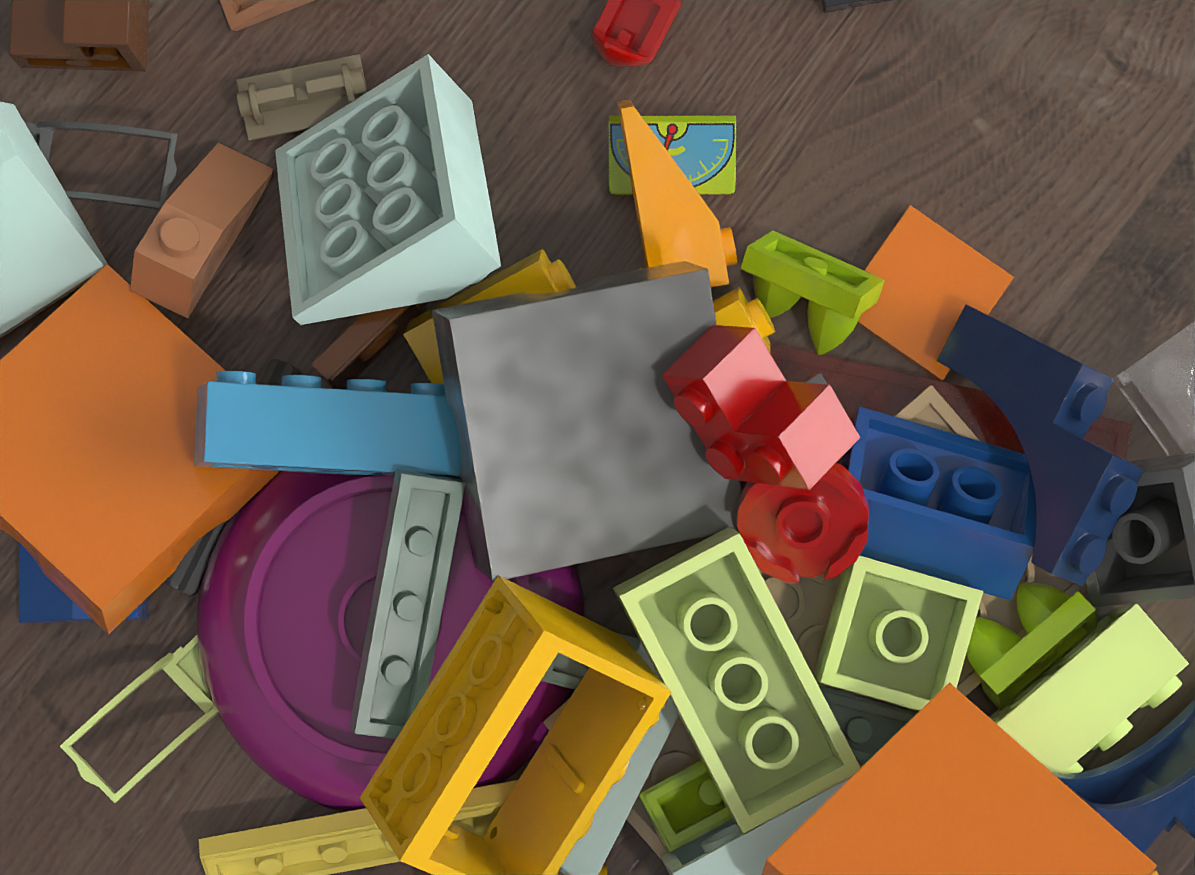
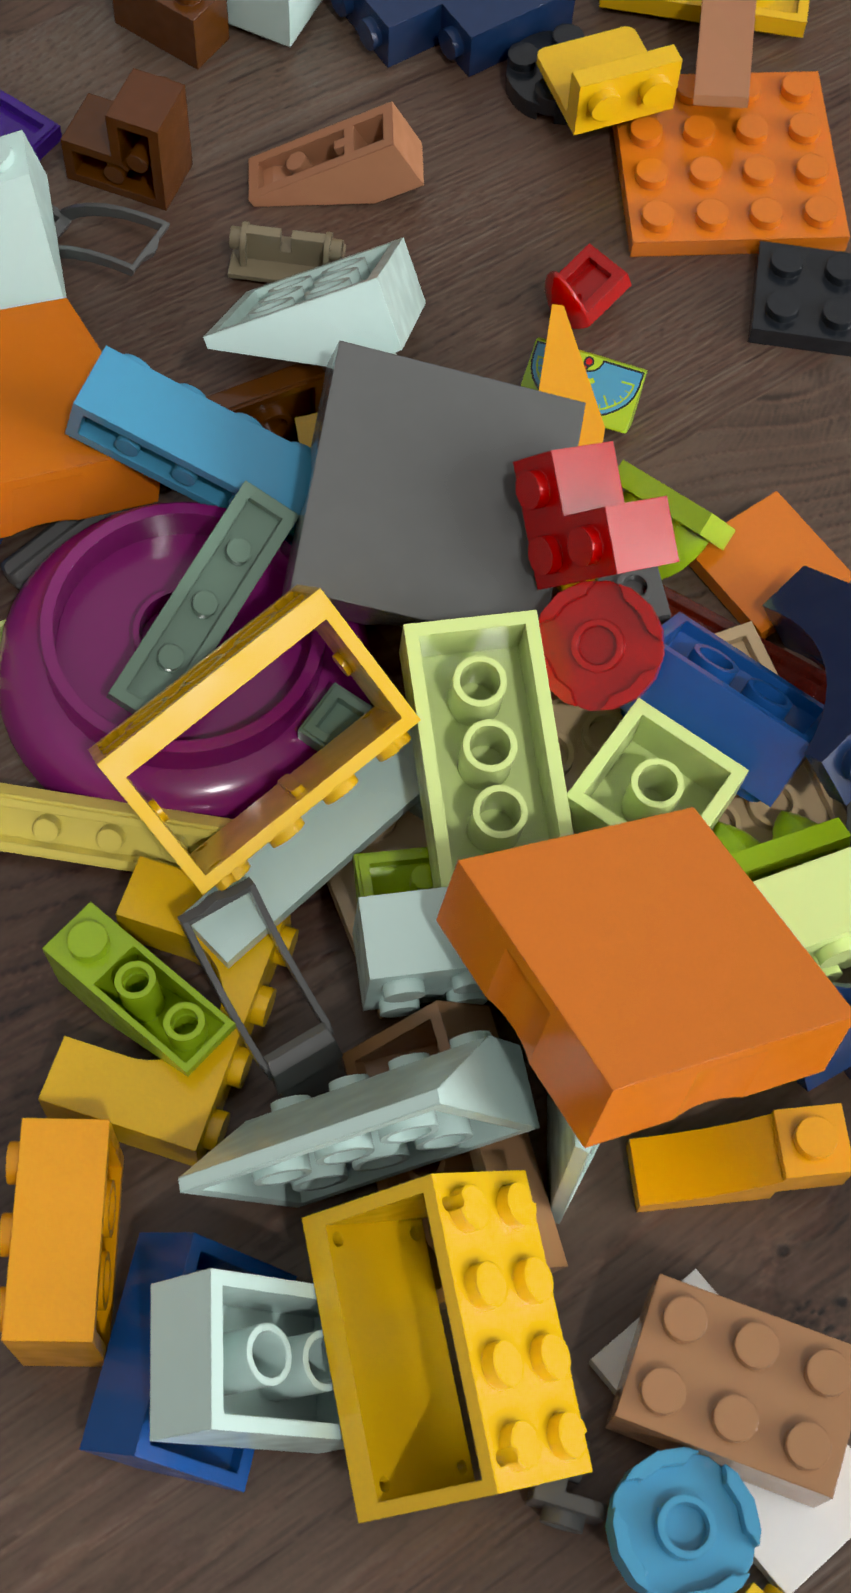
camera: 15 degrees right, 20 degrees down
(197, 229) = (145, 297): nougat slope -> none

